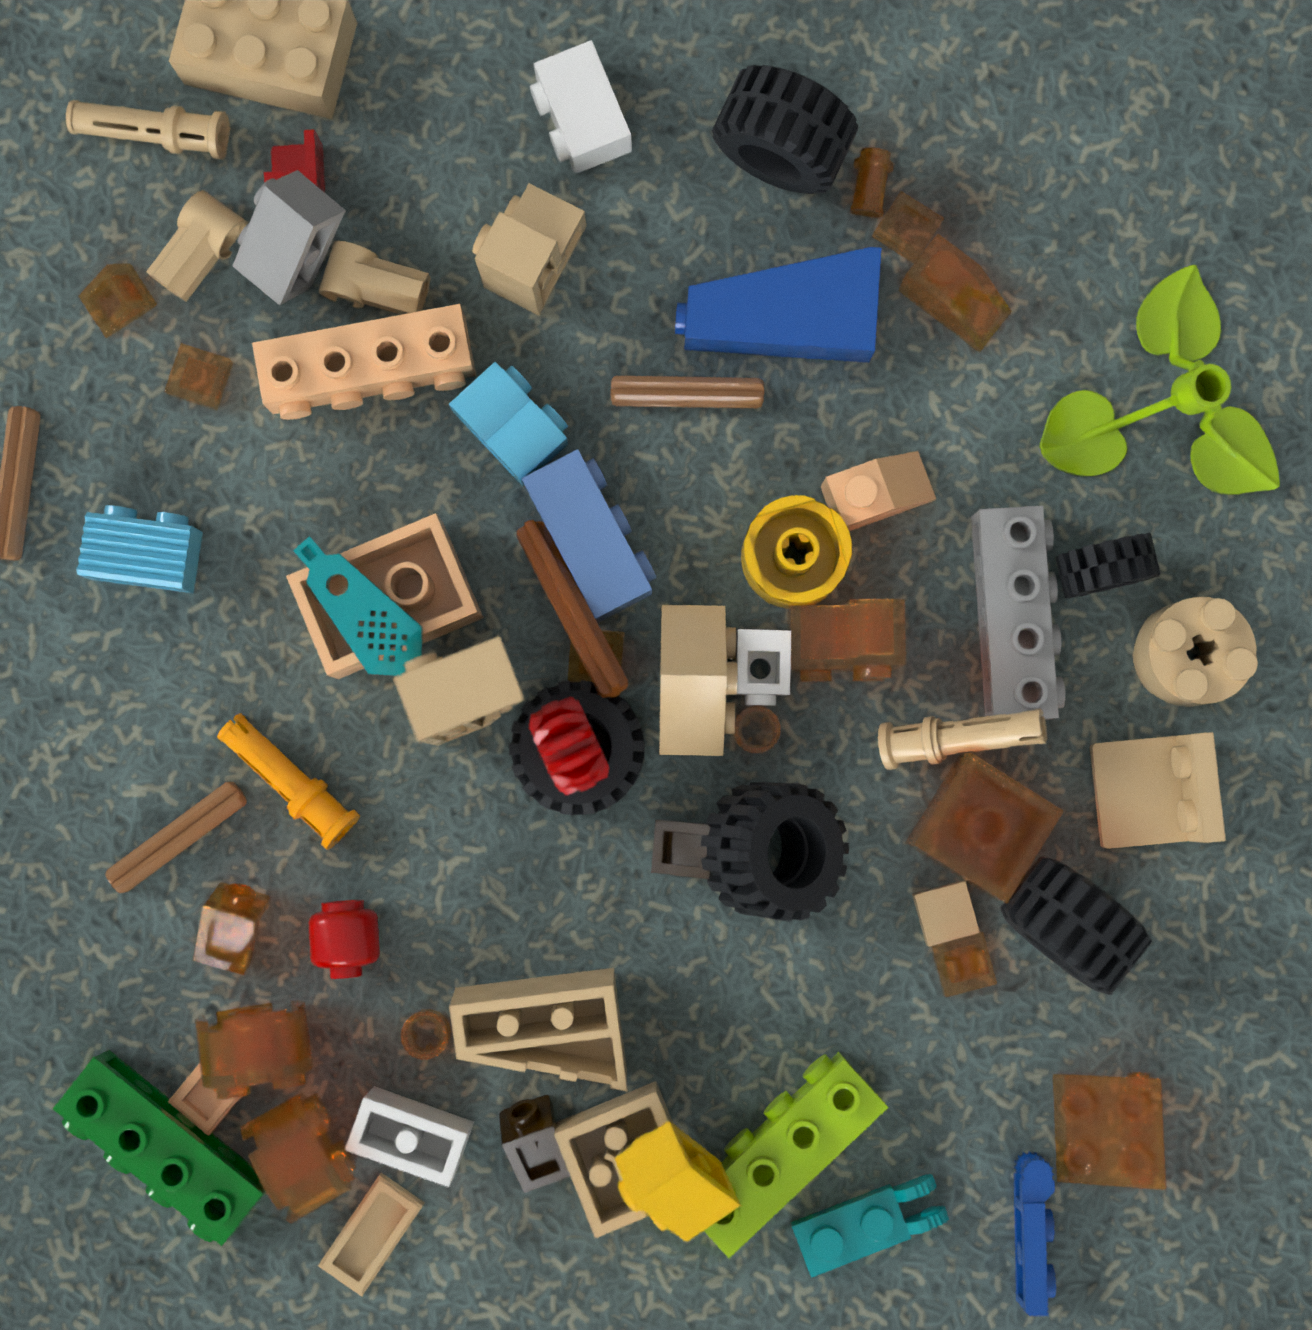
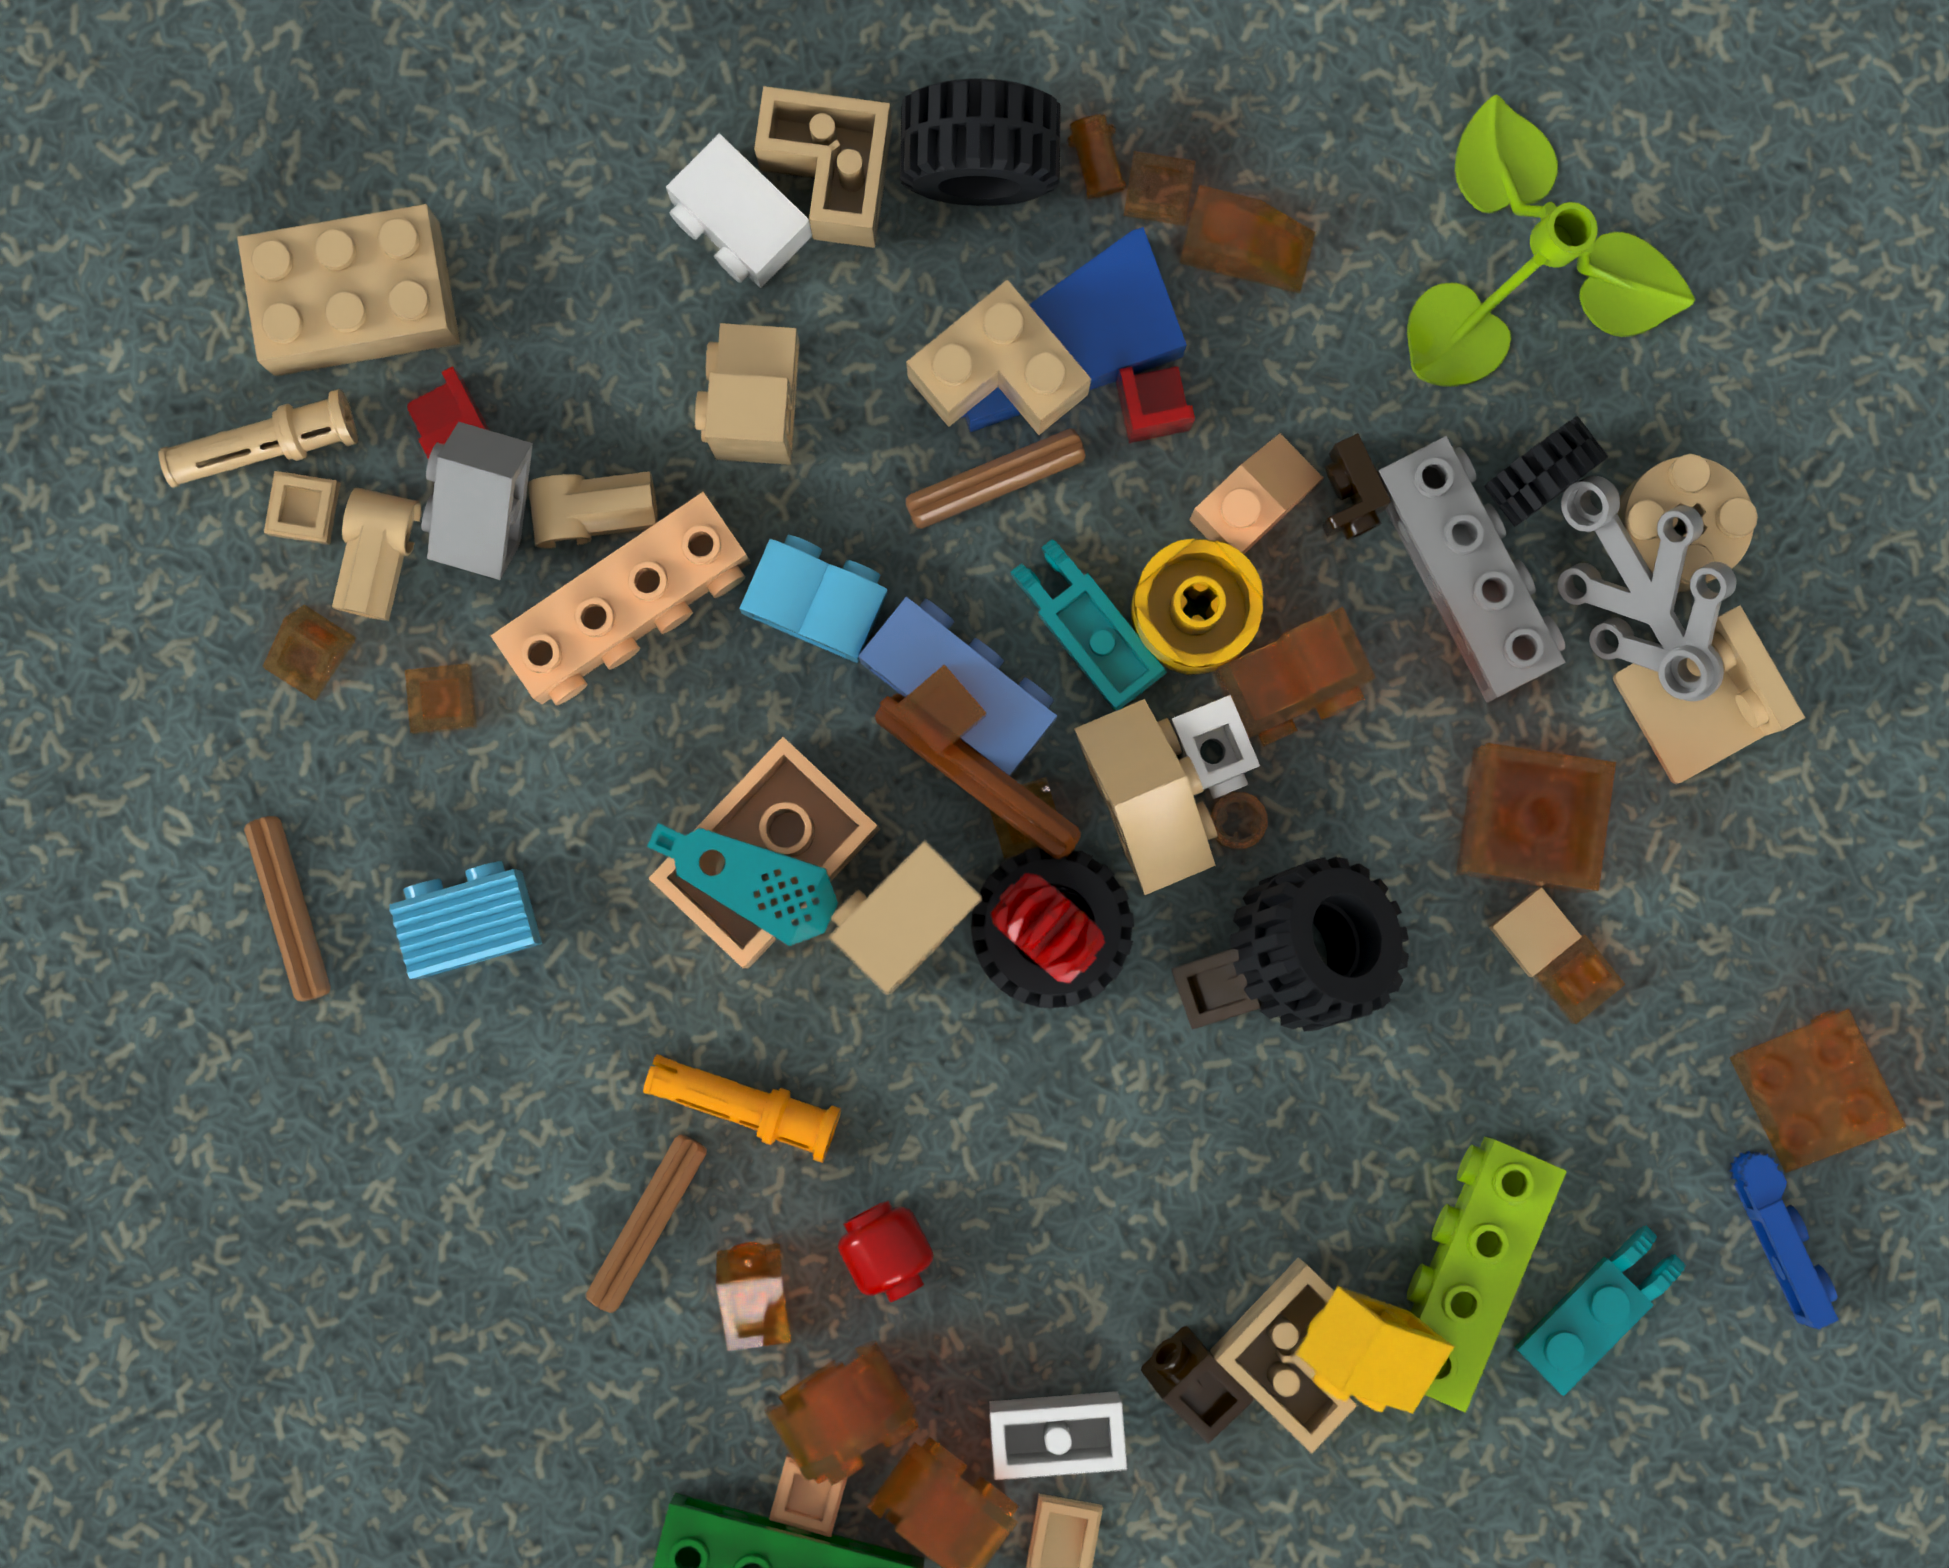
camera: 25 degrees left, 0 degrees up
(159, 190) = (302, 507): none -> tan tile
(409, 1036) = (1005, 1329): clear orange bush -> none
(544, 1025) = (1152, 1248): tan wedge -> none
(564, 546) = (941, 710): none -> clear orange tile
(678, 93) = (838, 144): none -> tan brick
(709, 538) = (1092, 630): none -> teal hinge
(727, 288) = (1001, 347): none -> tan brick
(831, 386) = (1153, 403): none -> red panel
(937, 739) = (1441, 745): tan pin -> none
(960, 508) = (1355, 477): none -> dark brown bracket
(1076, 925) = (1683, 881): black tyre -> none
(1145, 695) = (1648, 595): none -> light grey plant

